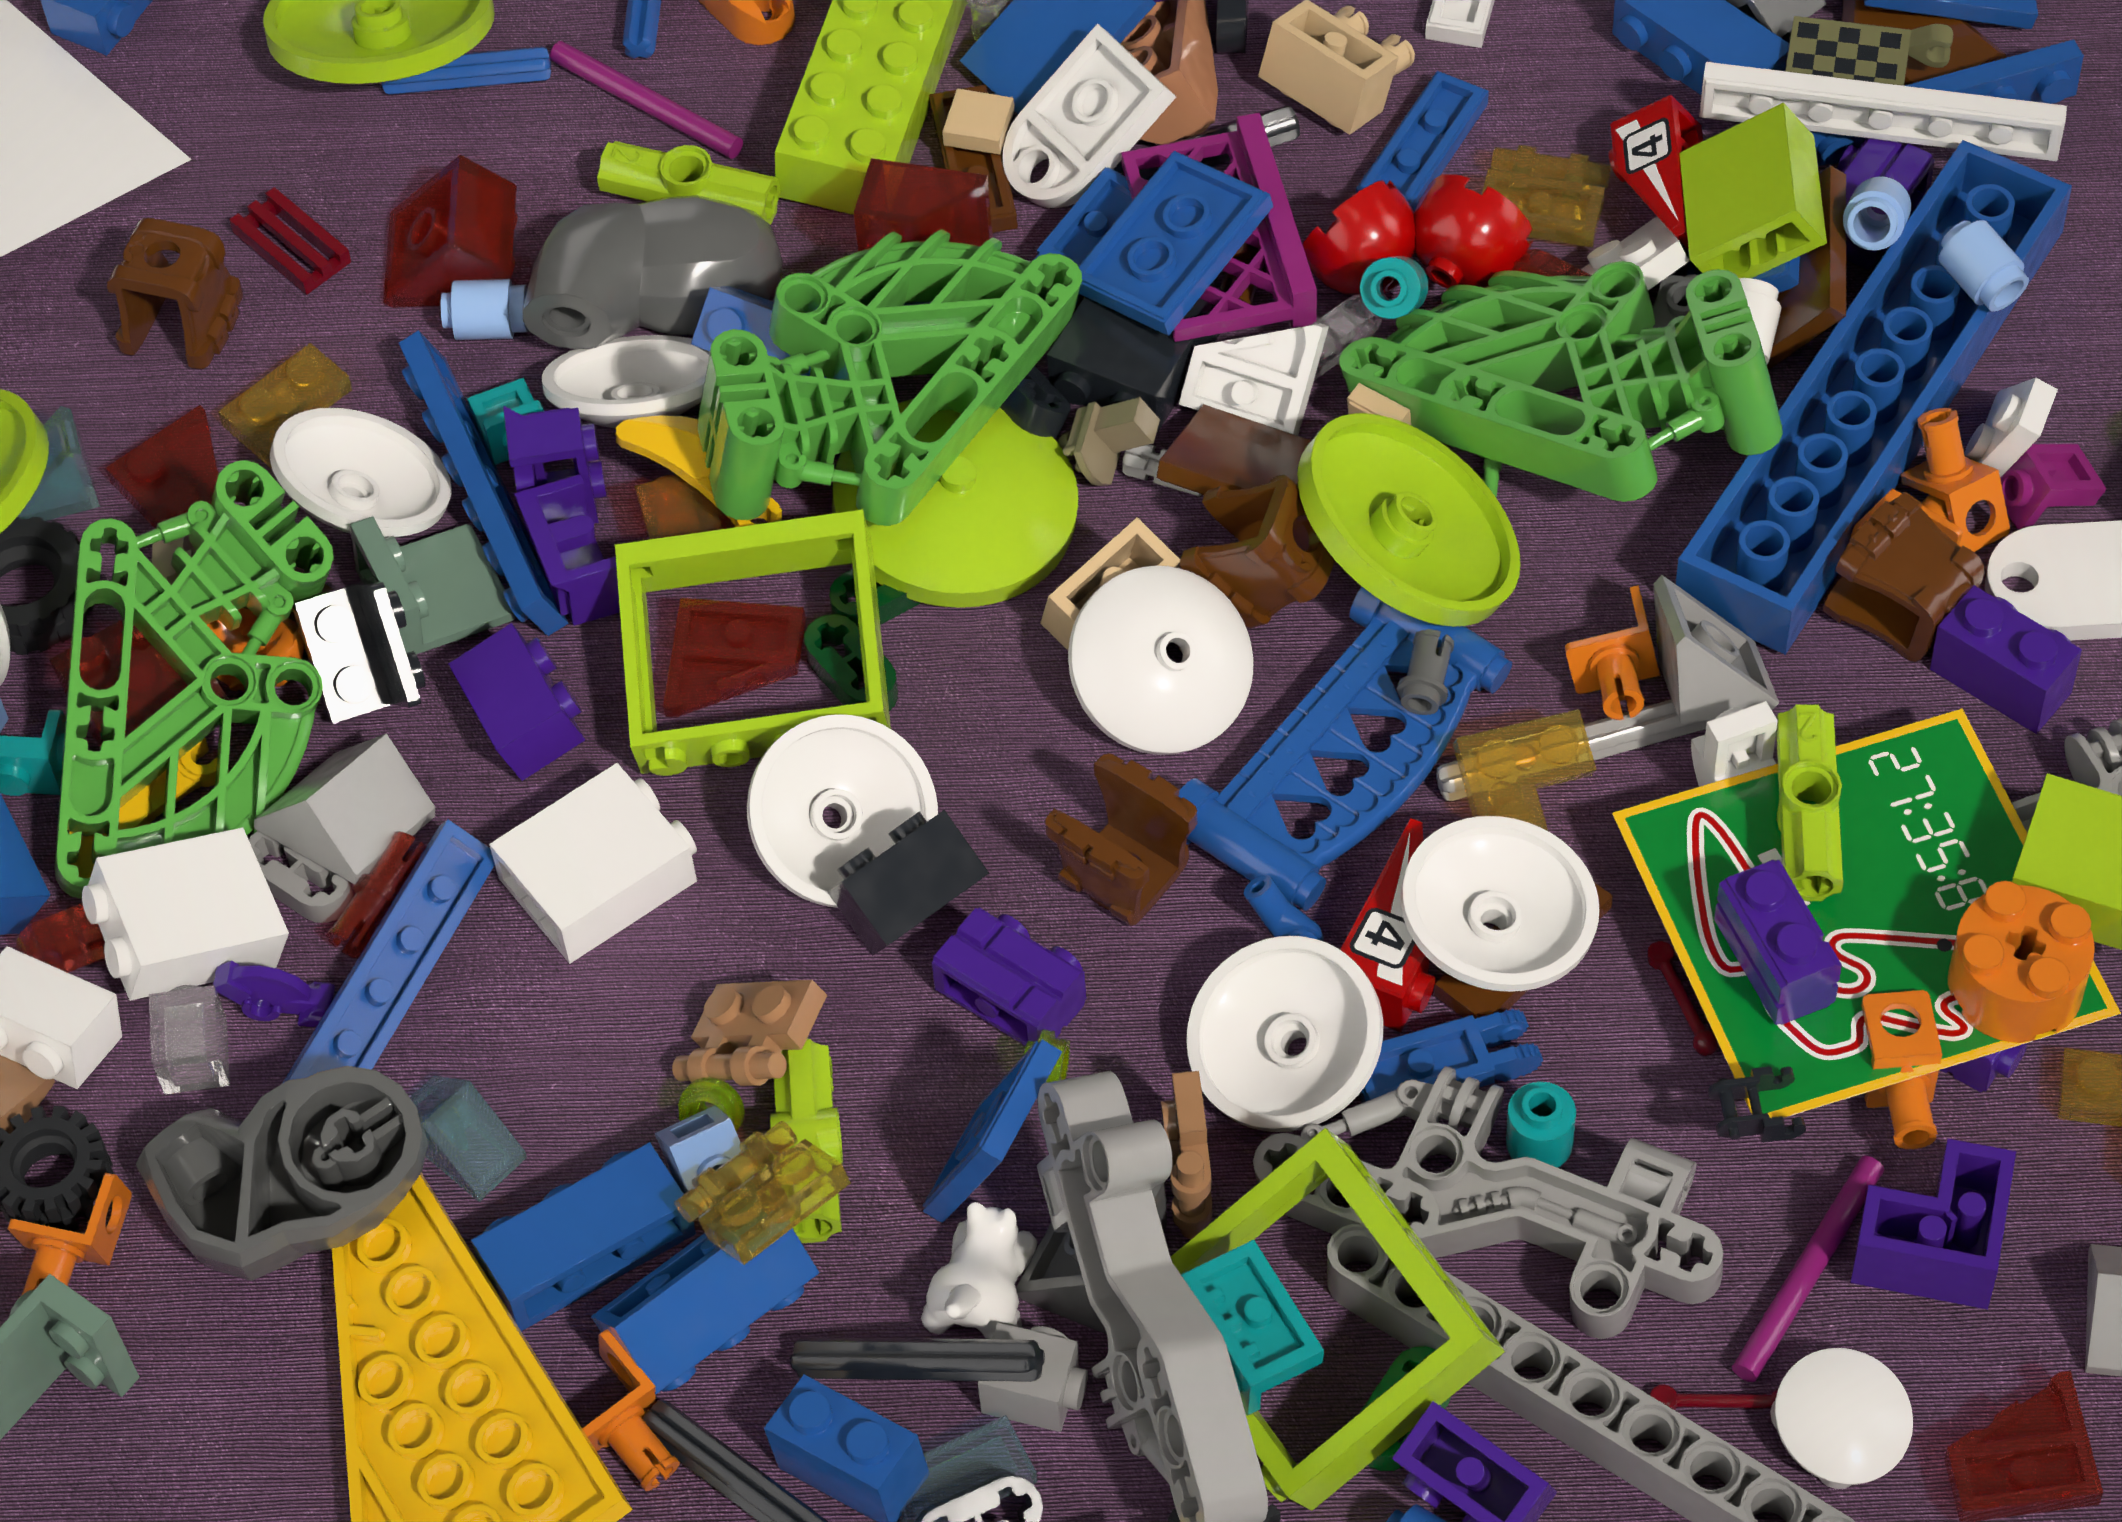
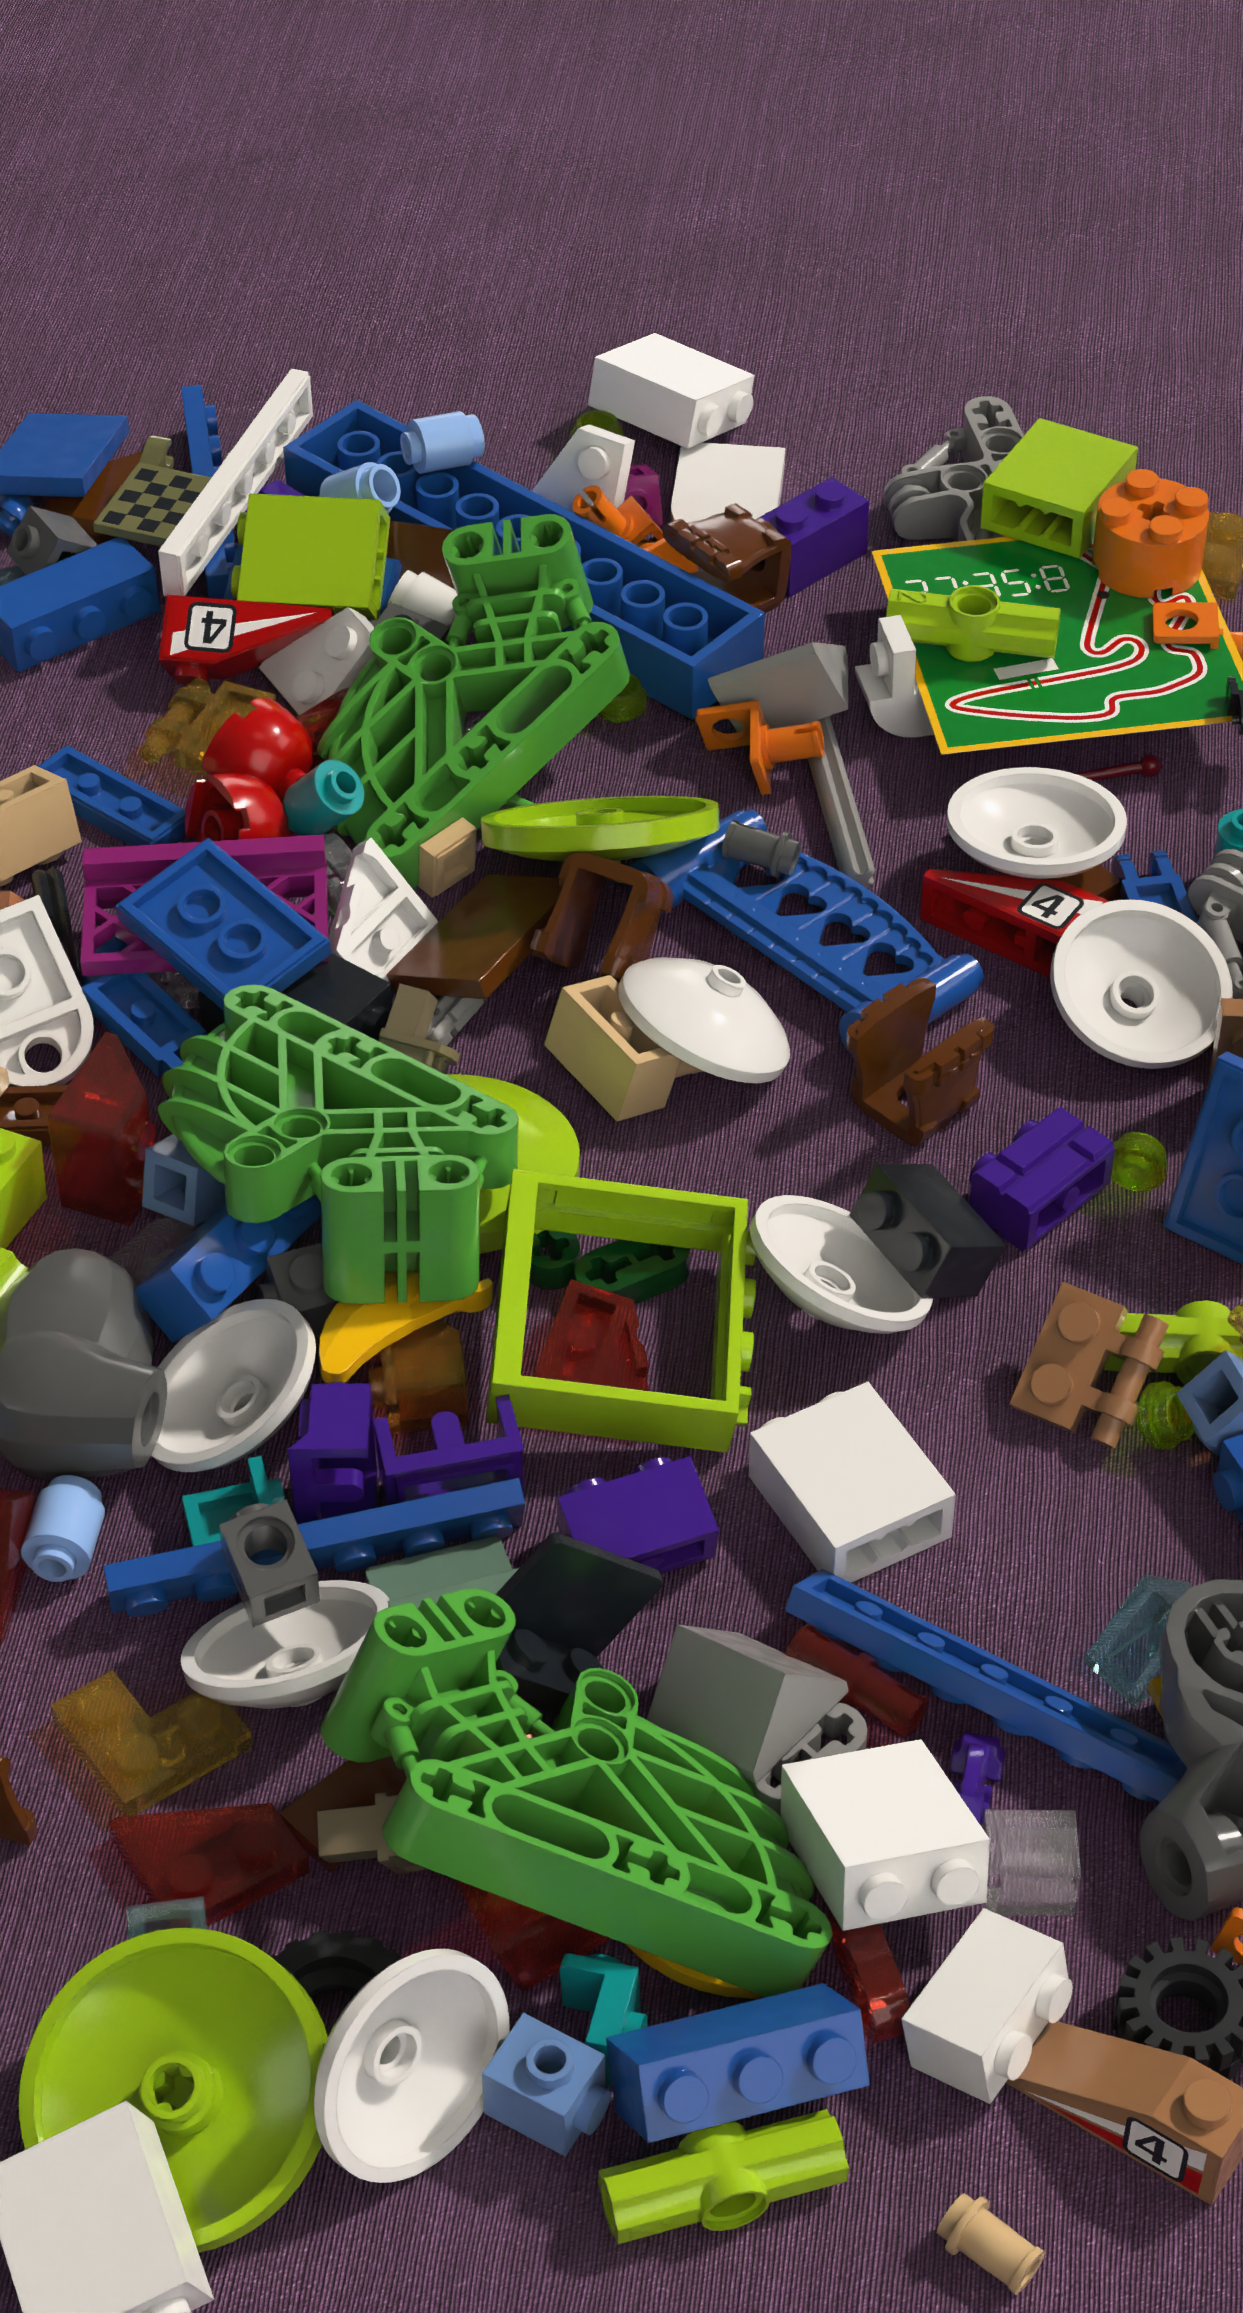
camera: 85 degrees left, 10 degrees down
(415, 430) = (273, 1588): none -> dark grey brick
(1277, 912) = (1001, 990): blue arm -> none
(1513, 761) = (871, 828): clear yellow plate -> none
(1678, 517) = (627, 704): none -> clear neon green plate
(1777, 942) = (1113, 657): dark purple brick -> none

